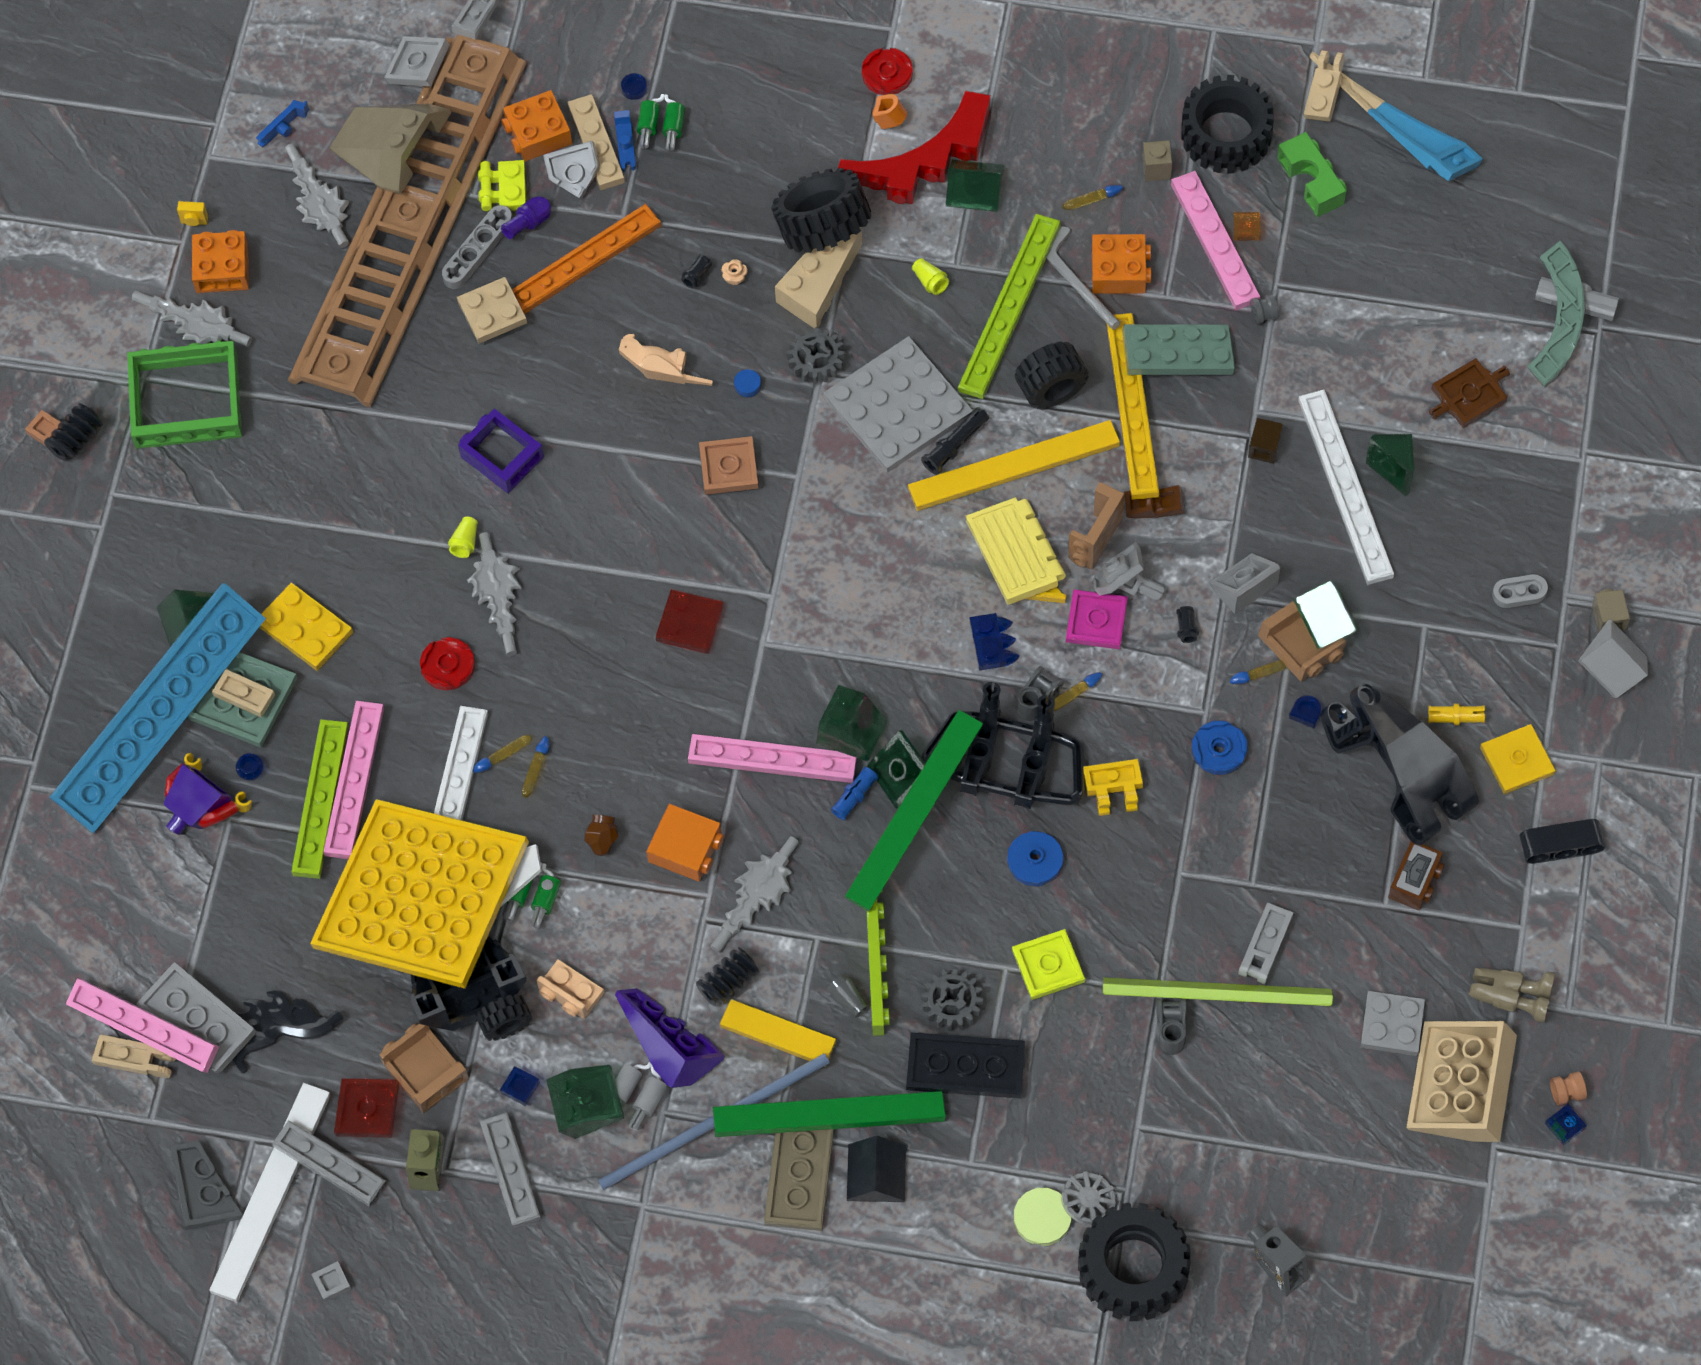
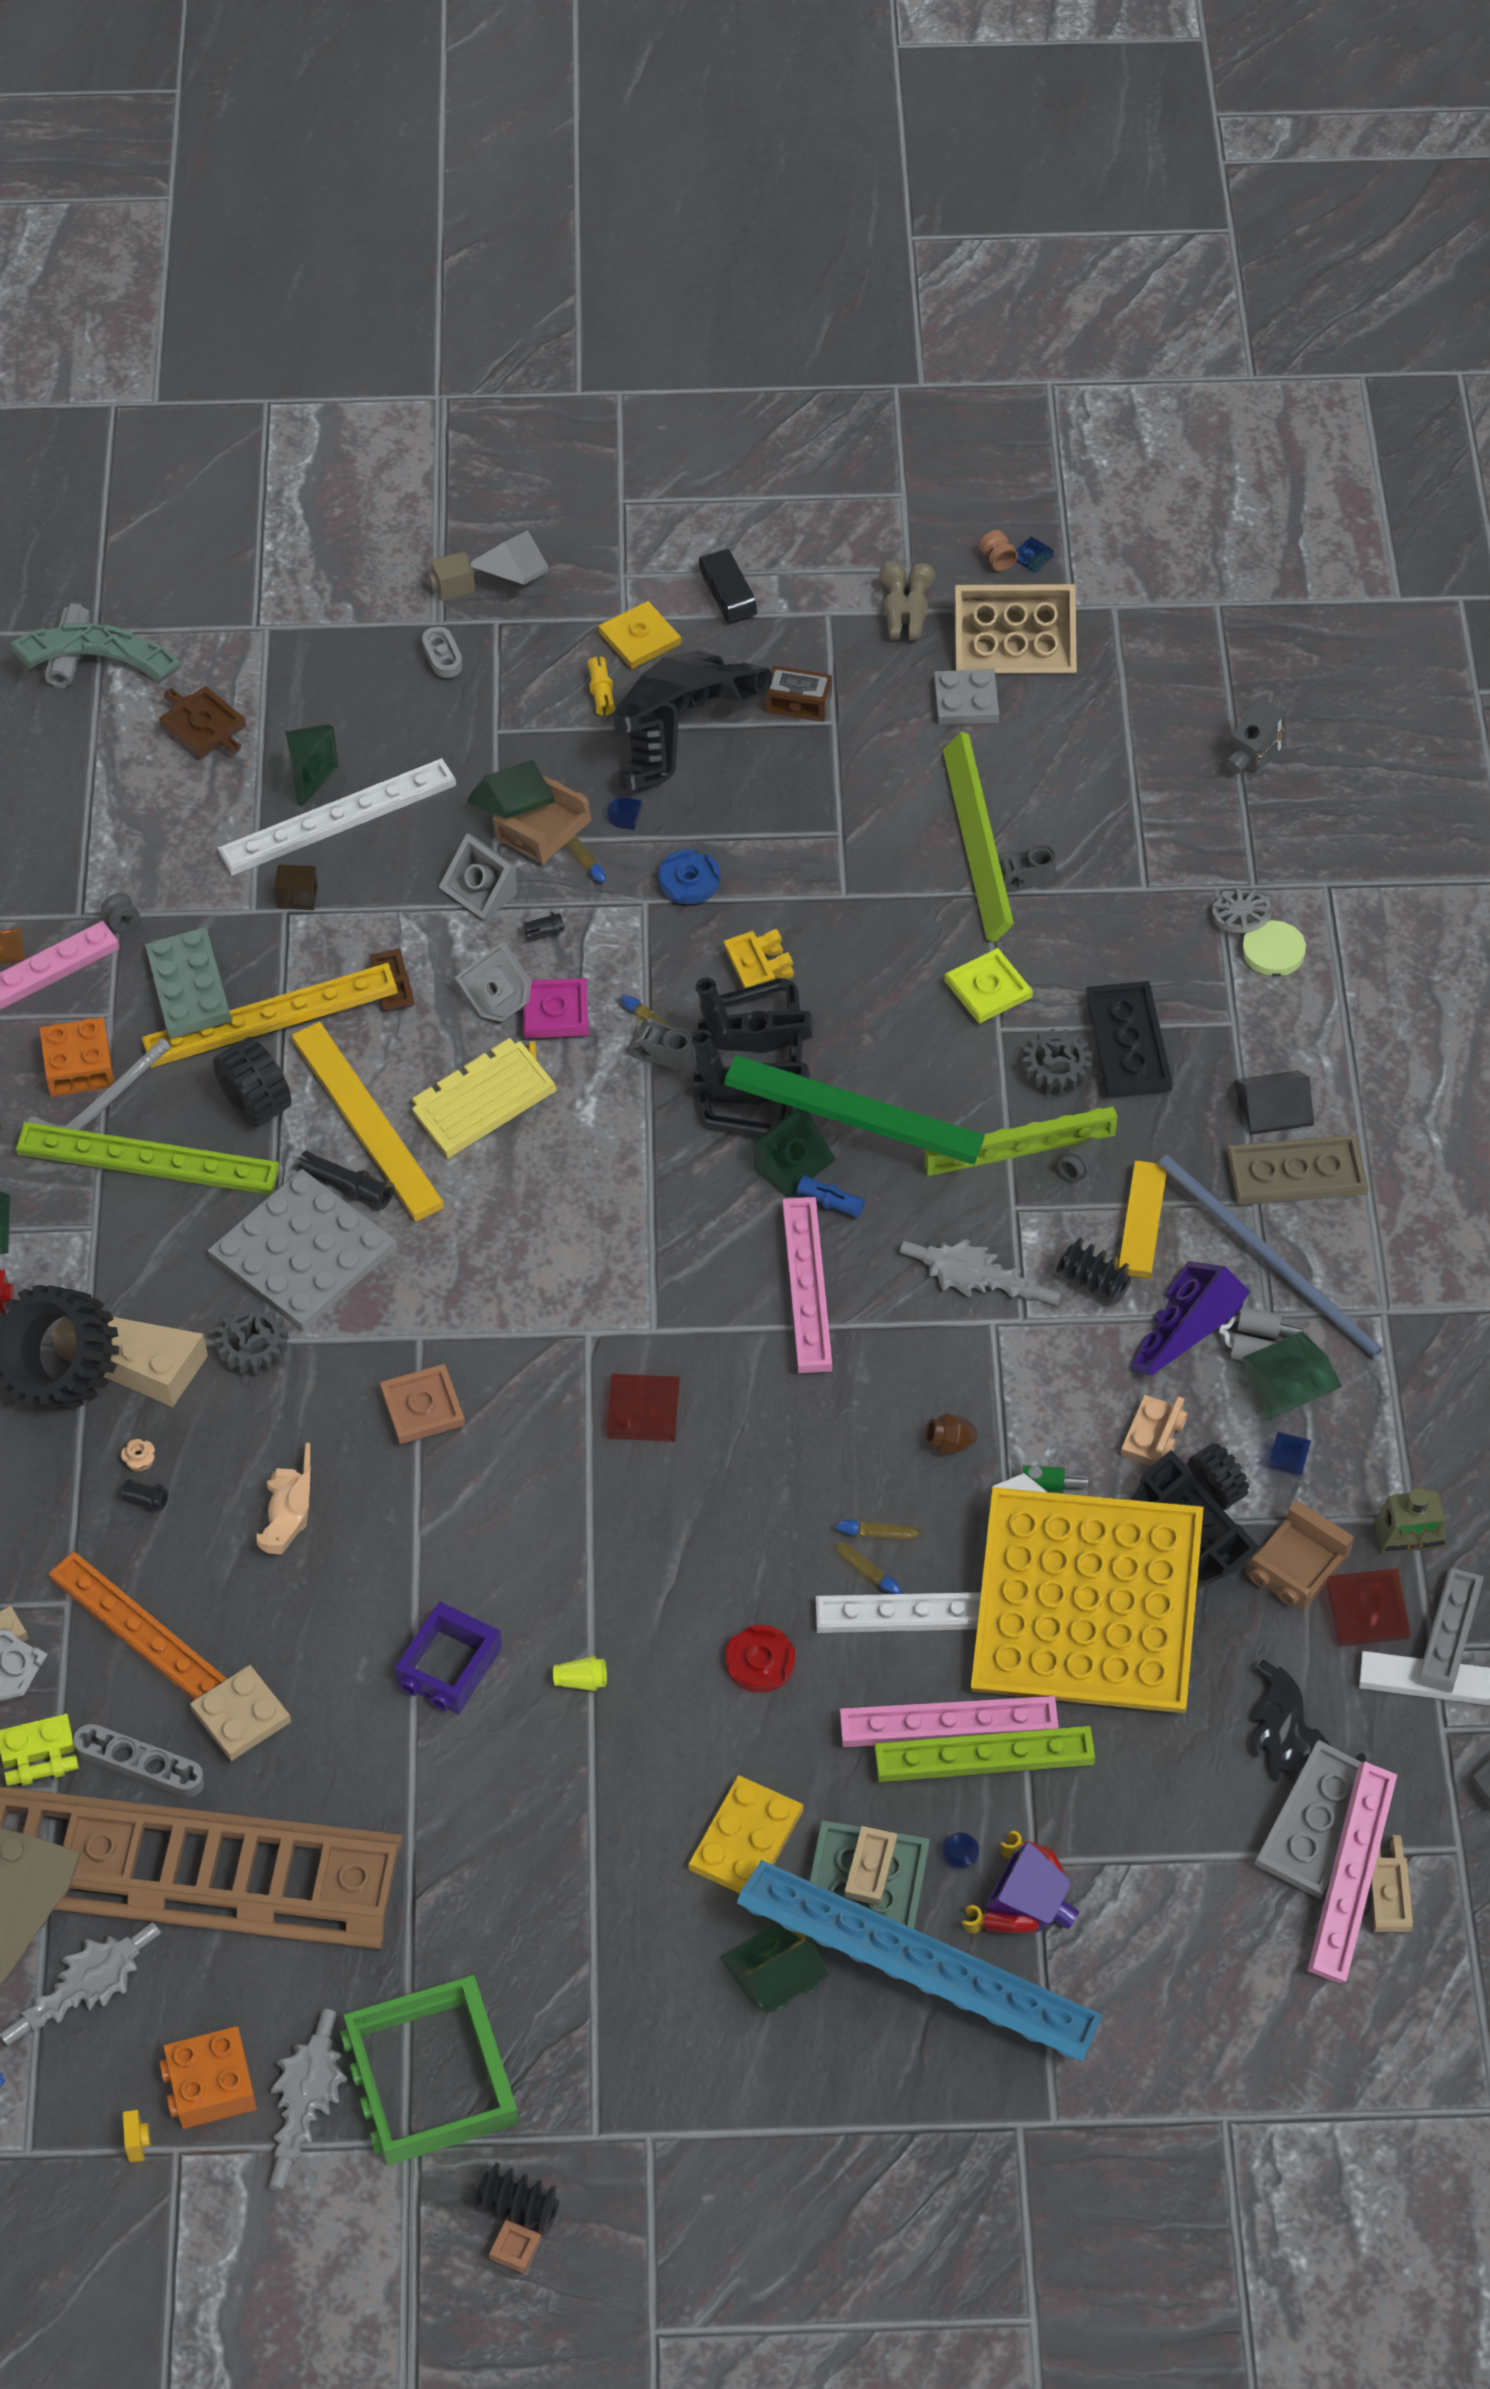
camera: 105 degrees left, 10 degrees down
(494, 583) = (641, 1629): light grey piece -> none
(510, 1170) = (1390, 1446): light grey tile -> none
(528, 216) = (87, 1704): dark purple arm -> none
(685, 843) = (942, 1344): orange brick -> none
(747, 383) = (299, 1410): blue tile -> none
(828, 1114) = (1229, 1148): green tile -> none
(851, 724) = (749, 1211): clear green slope -> none
(931, 277) = (119, 1242): neon yellow cone -> none
(990, 643) = (603, 1106): clear blue plate -> none
(1032, 871) = (859, 1031): blue plate -> none
(1108, 507) = (444, 1007): medium nougat panel -> none
(1140, 1225) = (1309, 822): black tyre -> none
(1266, 942) = (910, 805): light grey plate -> none

